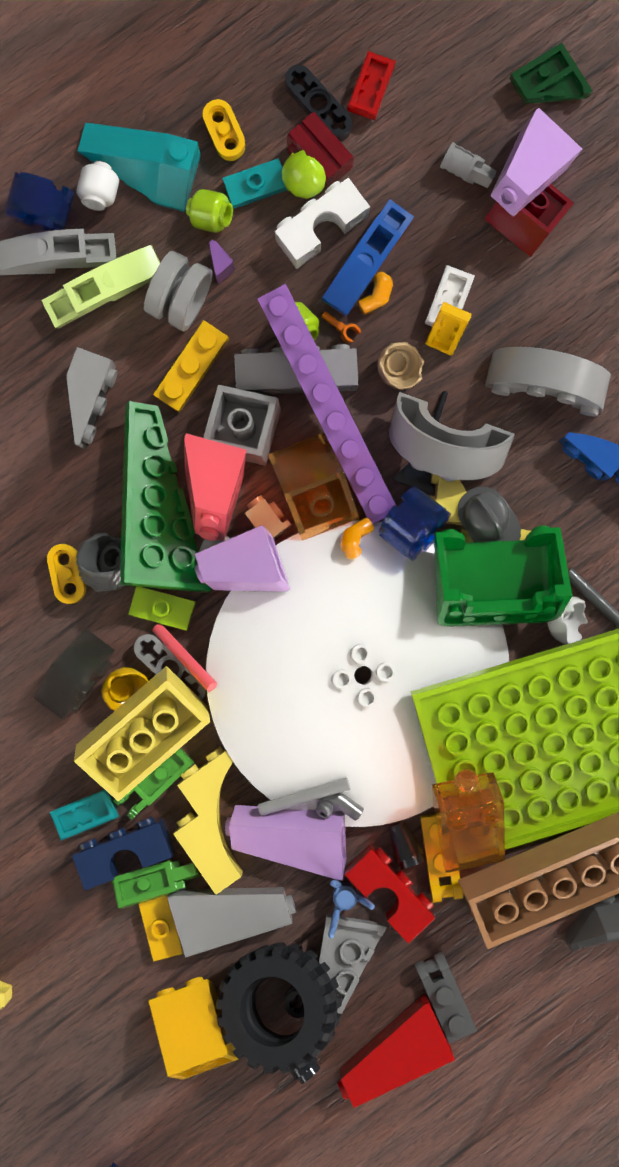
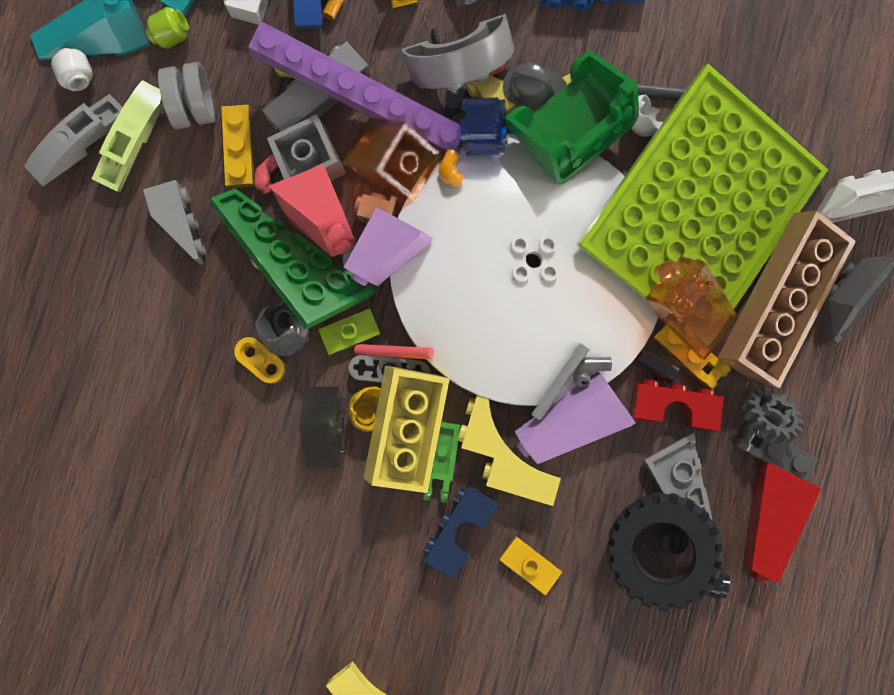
camera: 40 degrees left, 5 degrees down
(38, 202) = (35, 108): clear blue brick -> none
(84, 814) = (409, 526): teal plate -> none
(152, 882) = (498, 536): bright green hinge -> none
(190, 1029) = (614, 621): yellow slope -> none
(192, 412) = (263, 175): none -> coral arm
(222, 262) = (202, 54): medium lavender slope -> none
(232, 915) = (566, 526): light grey slope -> none
(341, 327) = (325, 39): orange hand -> none
(345, 898) = (648, 436): medium blue plant -> none
(400, 365) = (387, 32): tan hair -> none
(464, 966) = (772, 415): none -> dark grey gear

